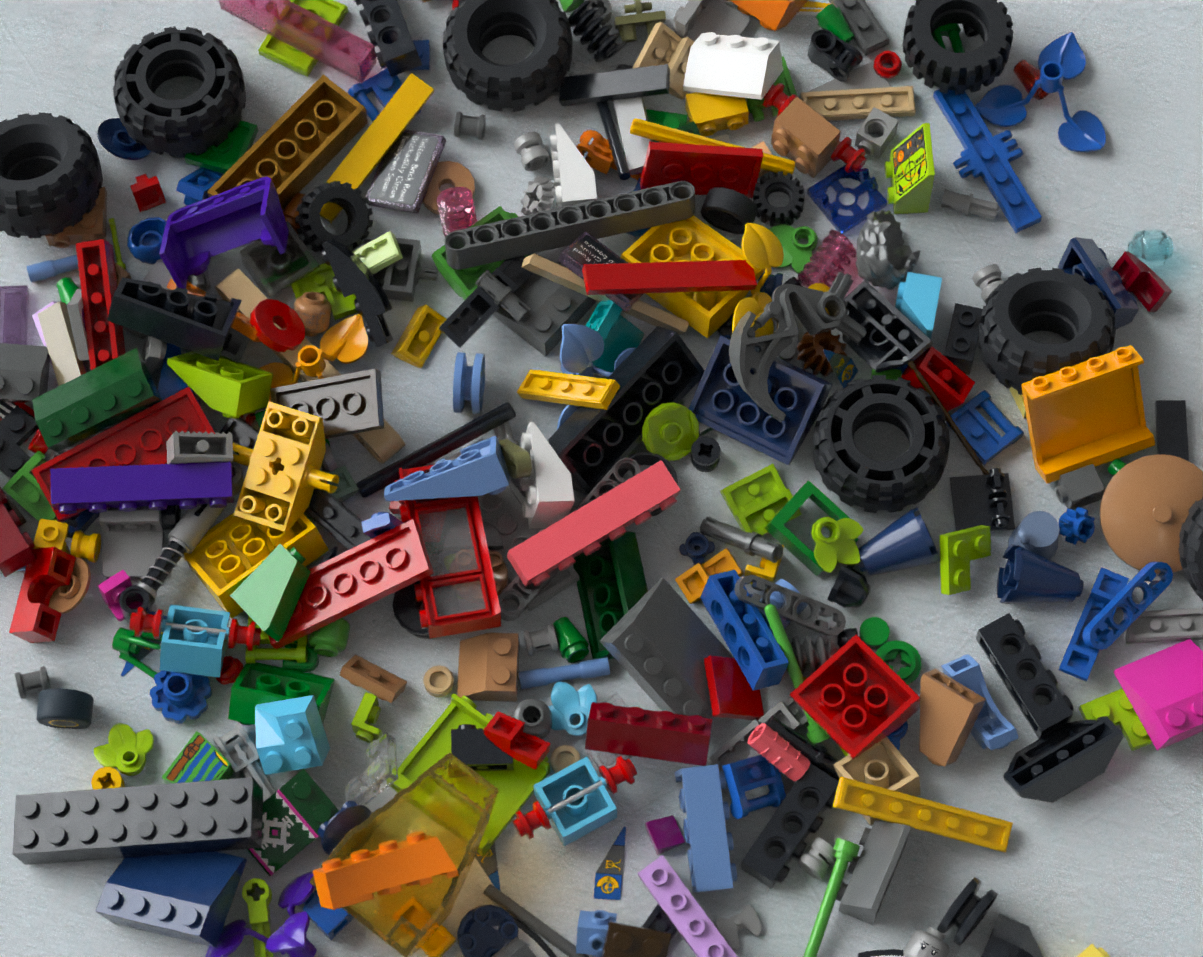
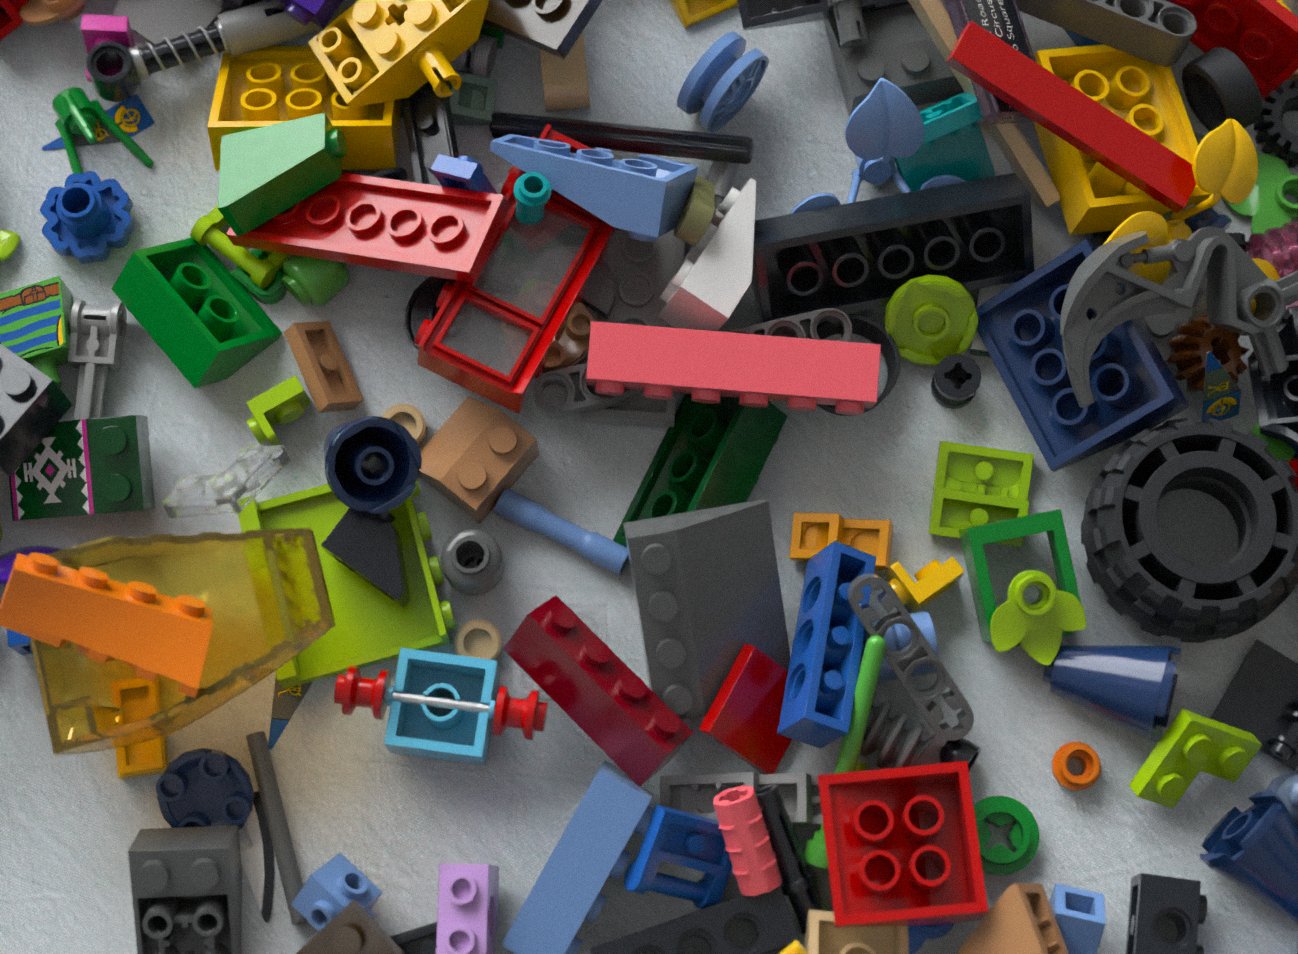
camera: 35 degrees right, 5 degrees up
(194, 637) = (140, 157): medium azure brick -> none
(230, 670) = (162, 228): red plate -> none
(290, 735) = (159, 363): medium azure slope -> none
(341, 823) = (134, 519): dark blue dish -> none
(427, 507) = (531, 193): none -> teal pin
(444, 704) = (371, 464): none -> dark blue cone
(509, 737) = (420, 567): red slope -> none
(540, 640) = (564, 468): light grey bush -> none
(568, 389) = (840, 175): yellow tile -> none
(570, 641) = (601, 495): green cone -> none
(571, 703) = (535, 575): medium azure plate -> none
(609, 874) = (425, 828): sticker -> none
(664, 834) = (527, 832): magenta slope -> none
(697, 539) = (861, 483): dark blue plate -> none
(751, 543) = (923, 537): dark grey pin -> none
(849, 588) = (1011, 690): black piece -> none
(874, 632) = (1000, 771): green tile -> none
(909, 595) = (1086, 756): none -> orange plate

